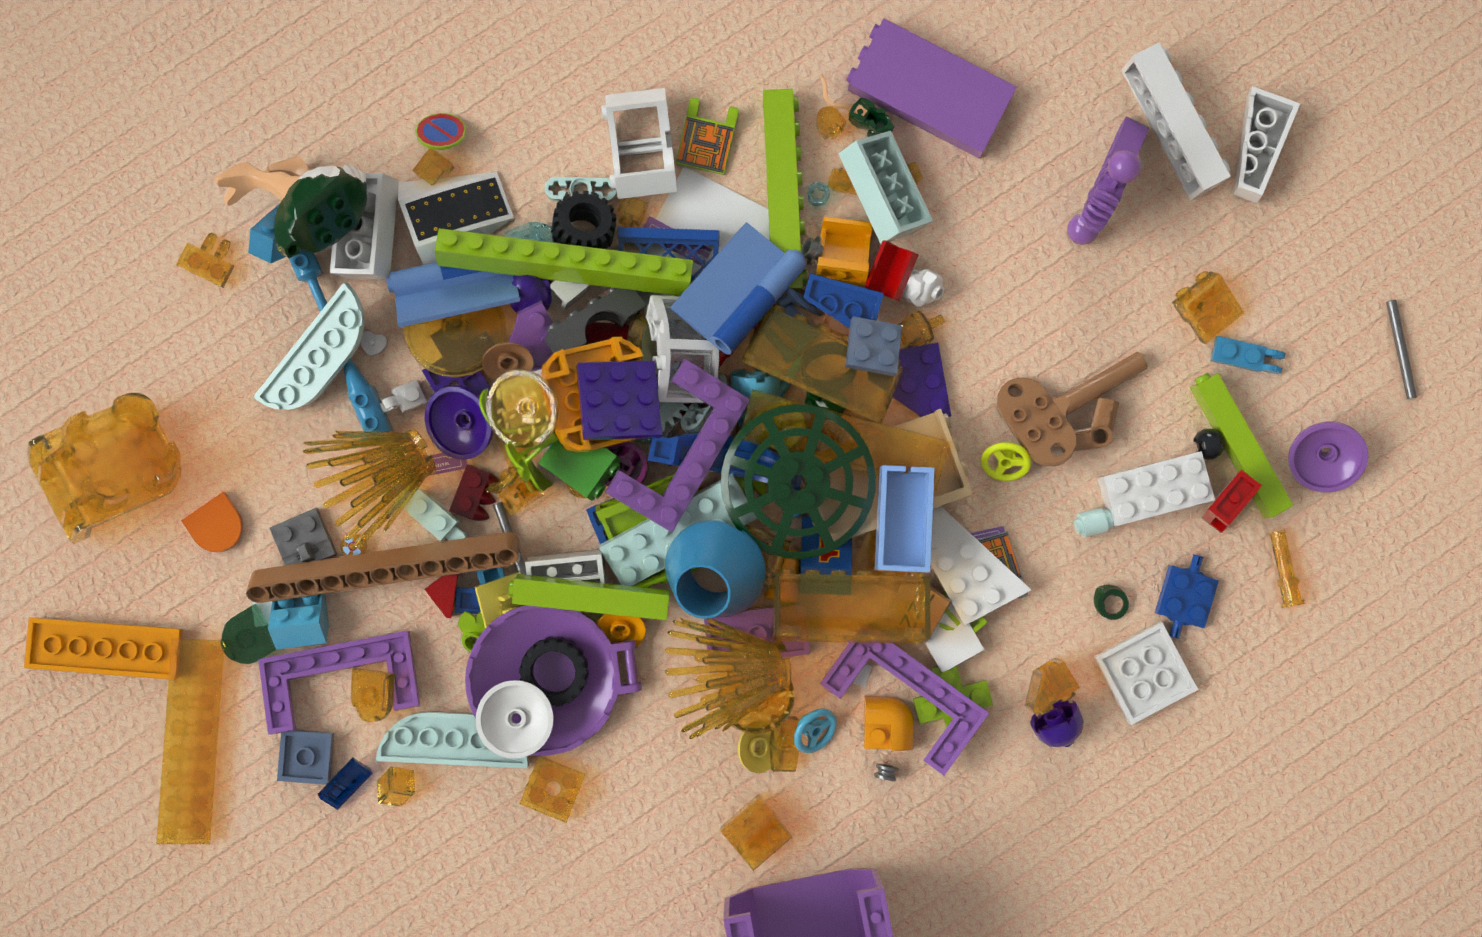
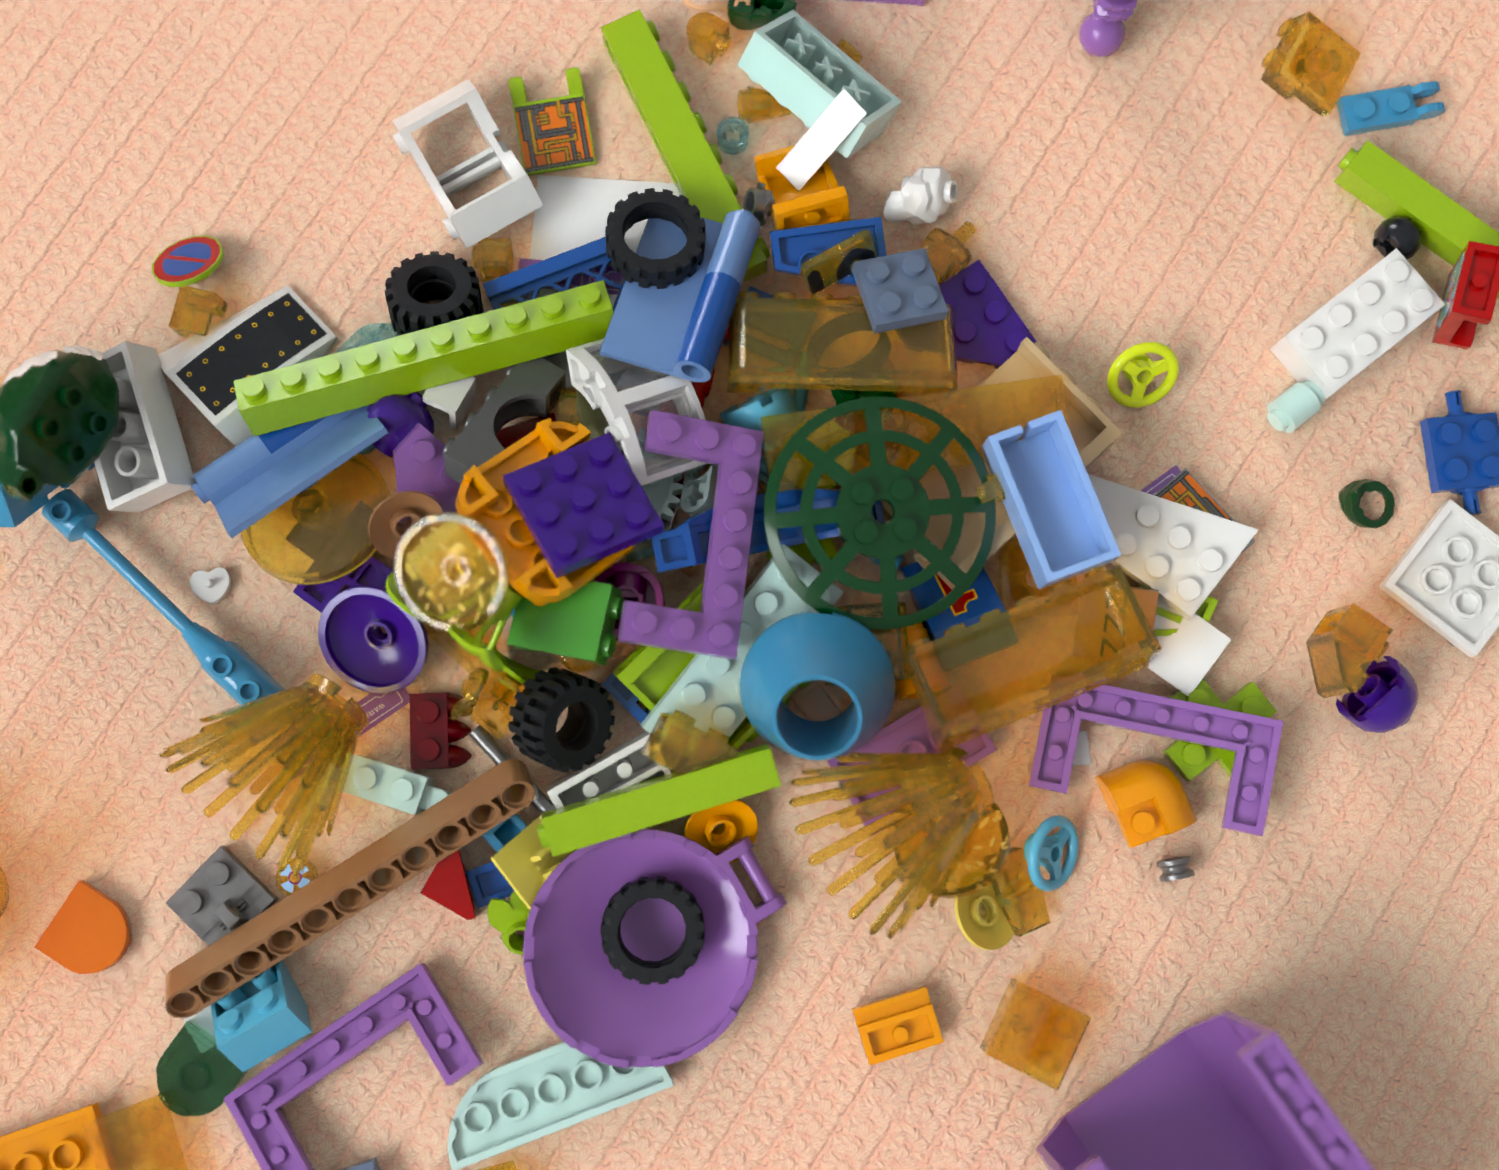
camera: 25 degrees left, 5 degrees down
(317, 354) = (134, 630): light aqua plate -> none
(372, 693) = (408, 1076): clear yellow tile -> none
(405, 396) = (284, 637): white plate -> none
(499, 730) = (621, 1052): white dish -> none
(535, 791) = (705, 1122): clear yellow piece -> none
(562, 181) = (398, 254): light aqua beam -> none
(563, 532) = (583, 730): none -> black tyre
(617, 572) = (682, 746): none -> clear yellow slope
(676, 791) = (897, 1025): none -> light orange plate
(743, 224) = (652, 206): none -> black tyre
(797, 298) = (770, 280): medium blue bar -> none
(843, 311) = (836, 261): none -> clear yellow slope
(869, 226) = (821, 139): none -> white sticker
(871, 497) = (990, 490): none -> clear yellow piece
(891, 270) = (877, 185): red panel -> none
(1042, 421) = (1166, 299): medium nougat piece -> none
(1103, 420) = (1243, 268): medium nougat piece -> none

